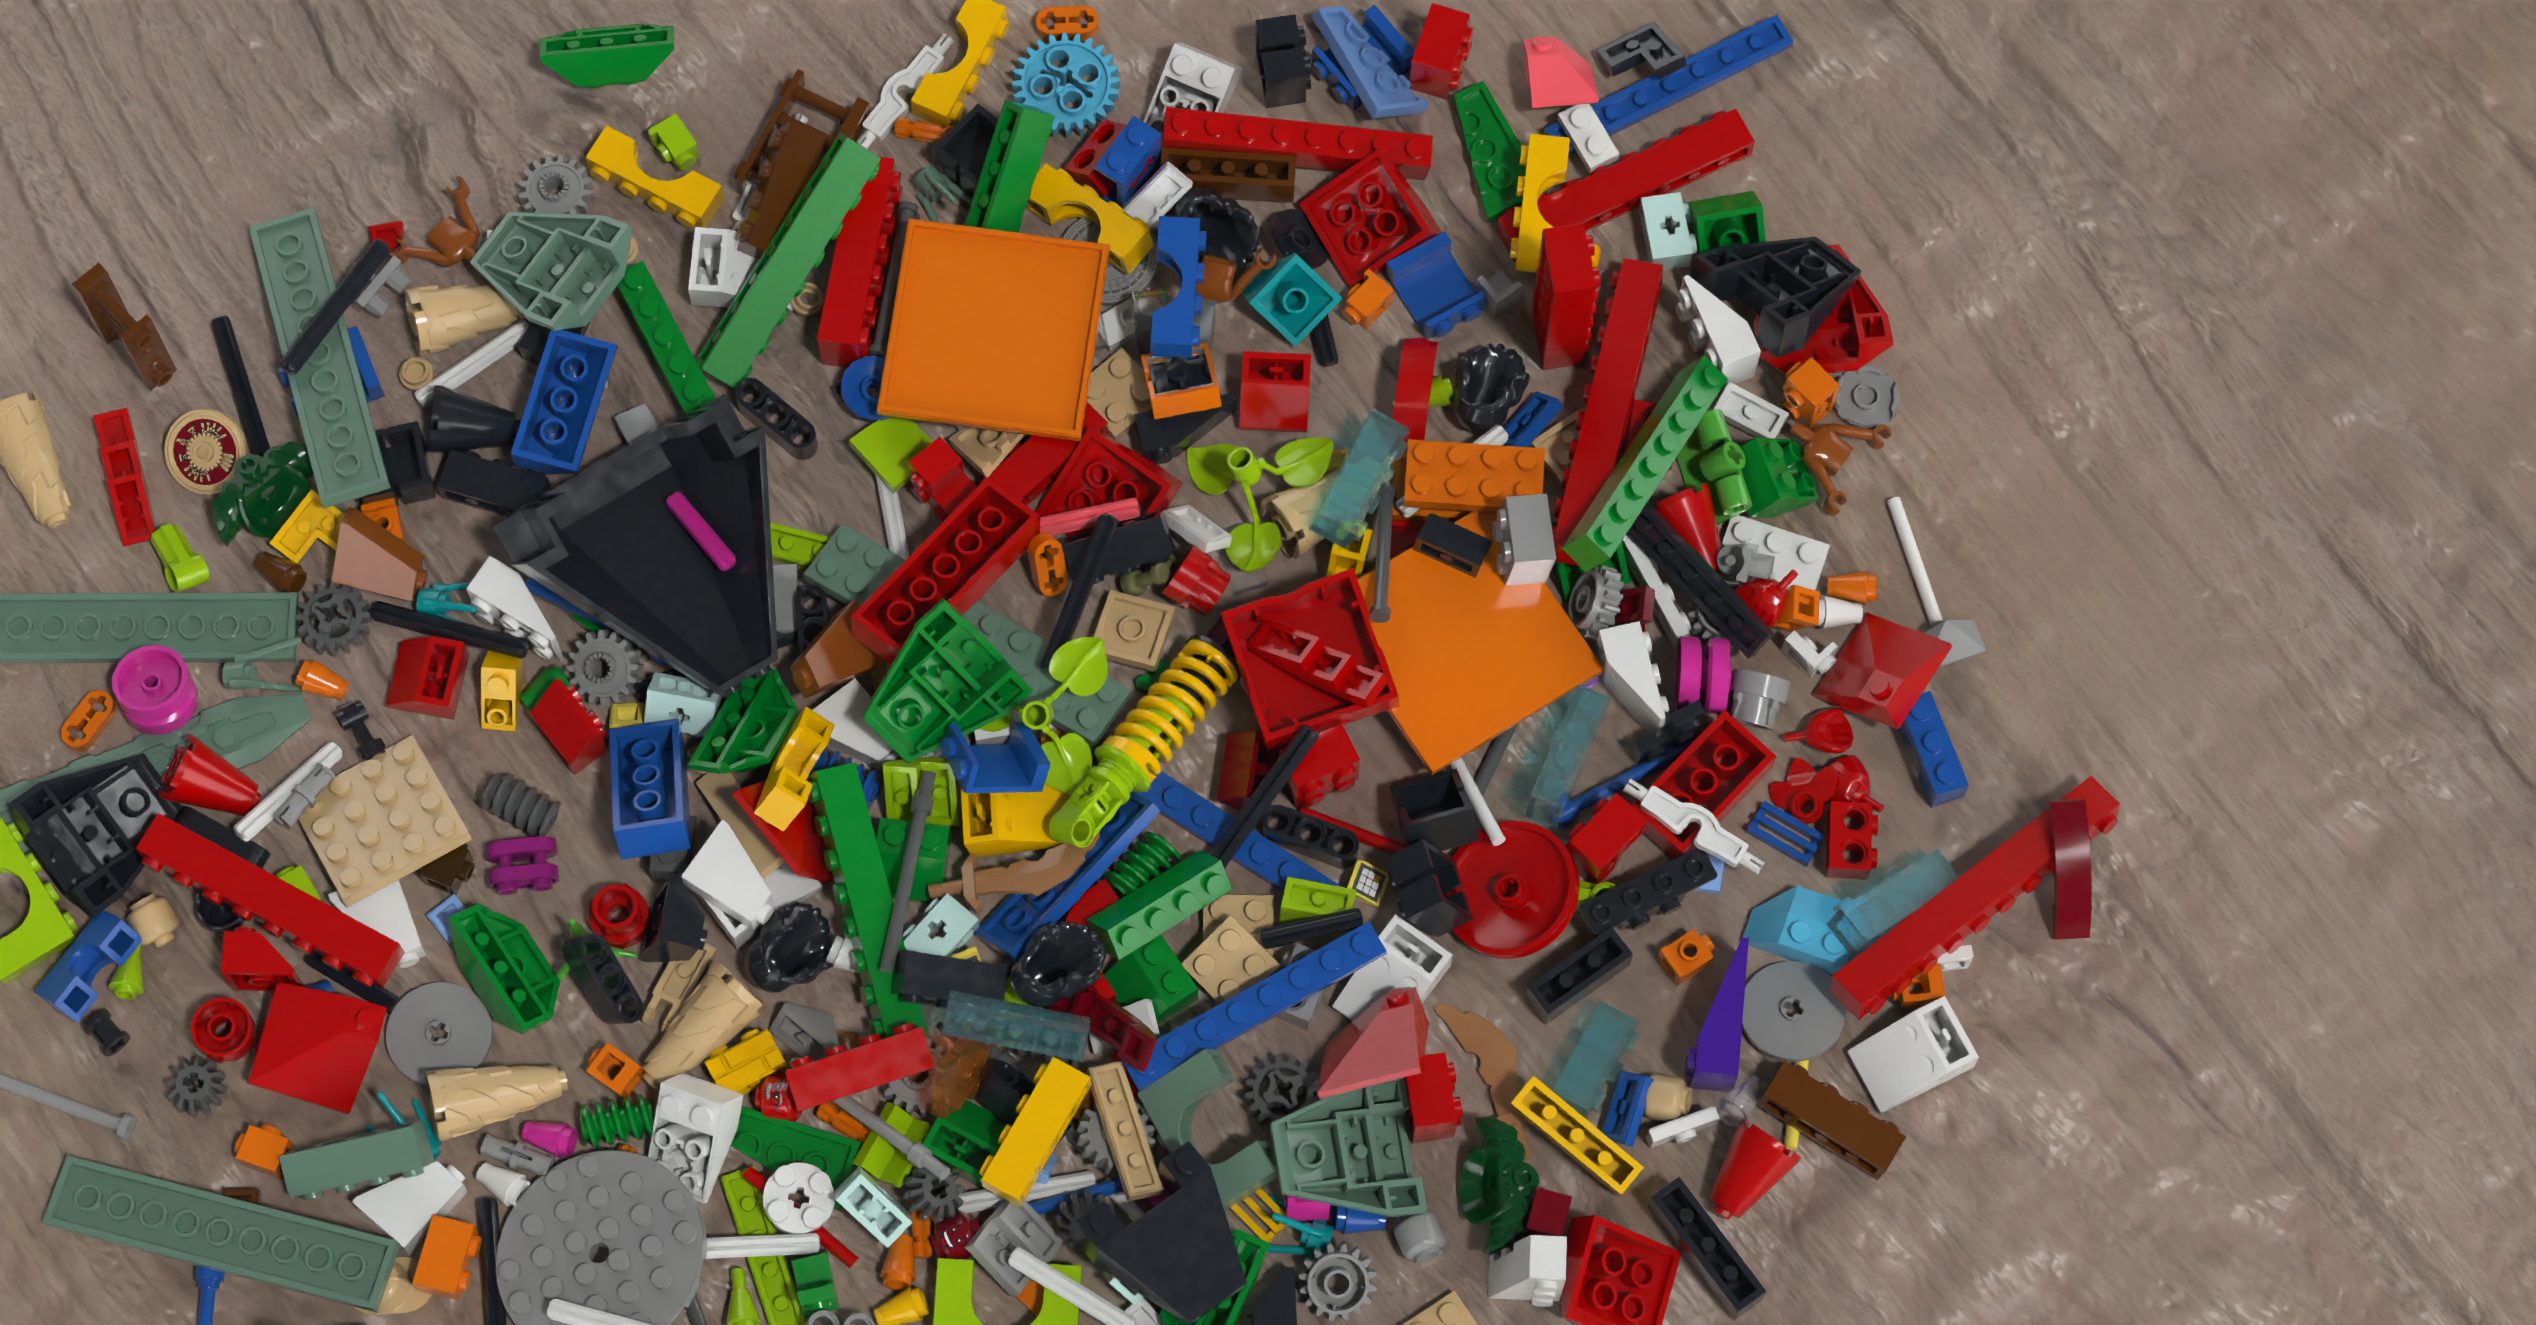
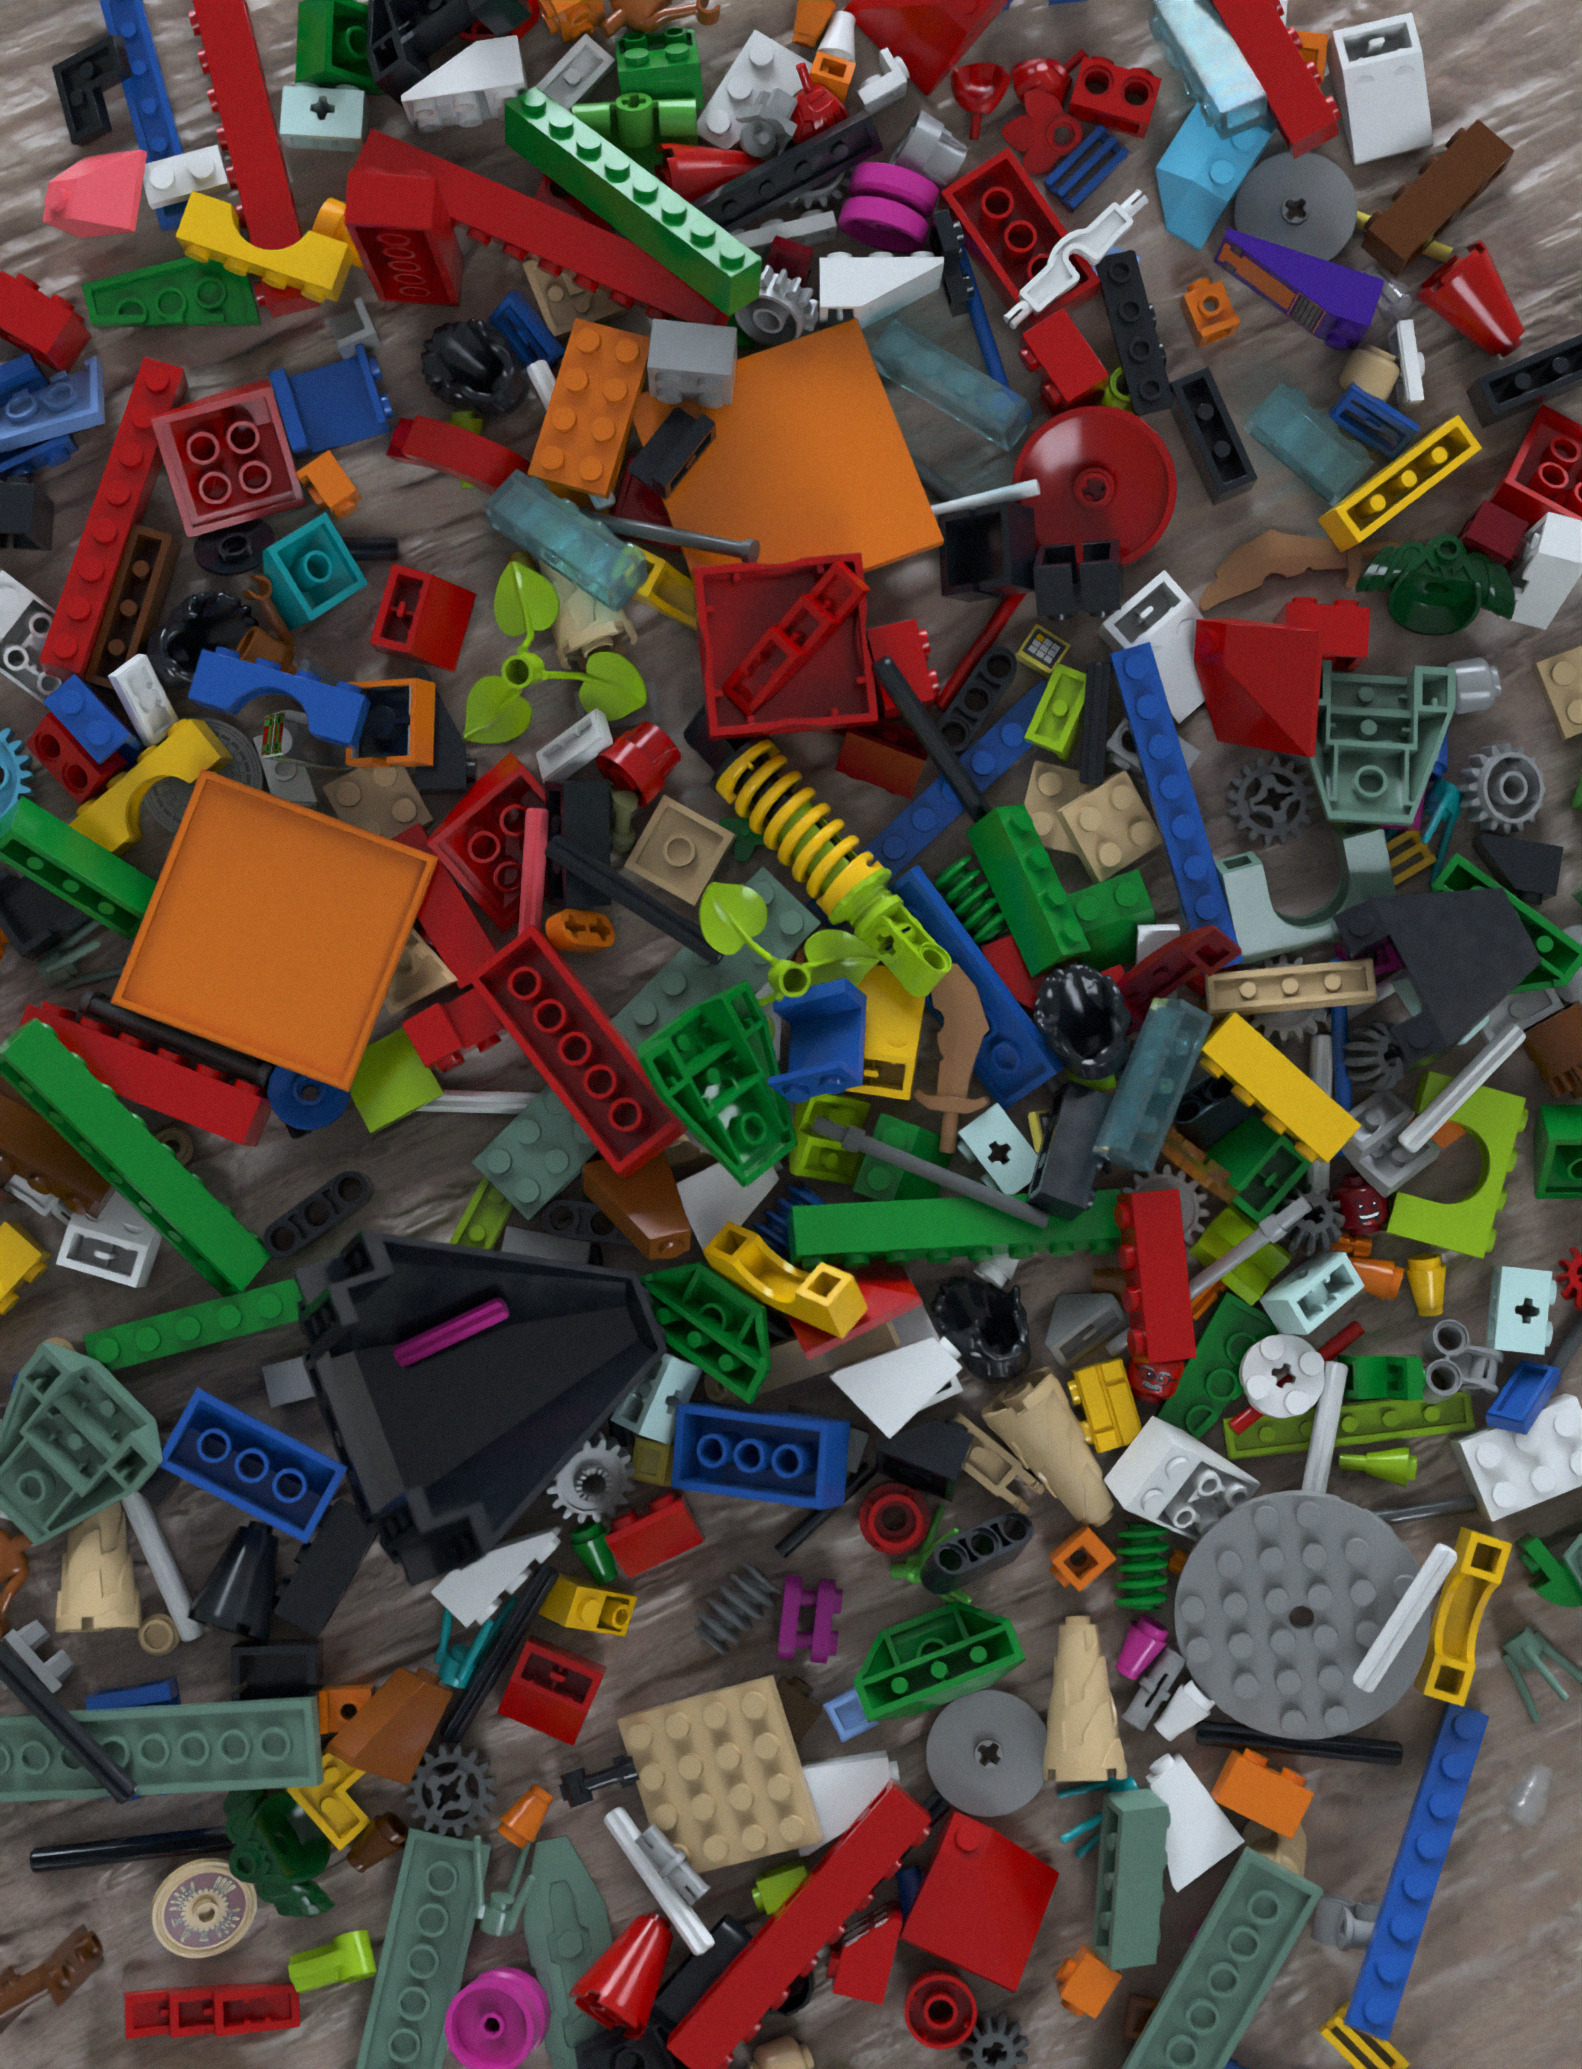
camera: 75 degrees left, 15 degrees up
(615, 862) = (818, 1517): none -> black bar

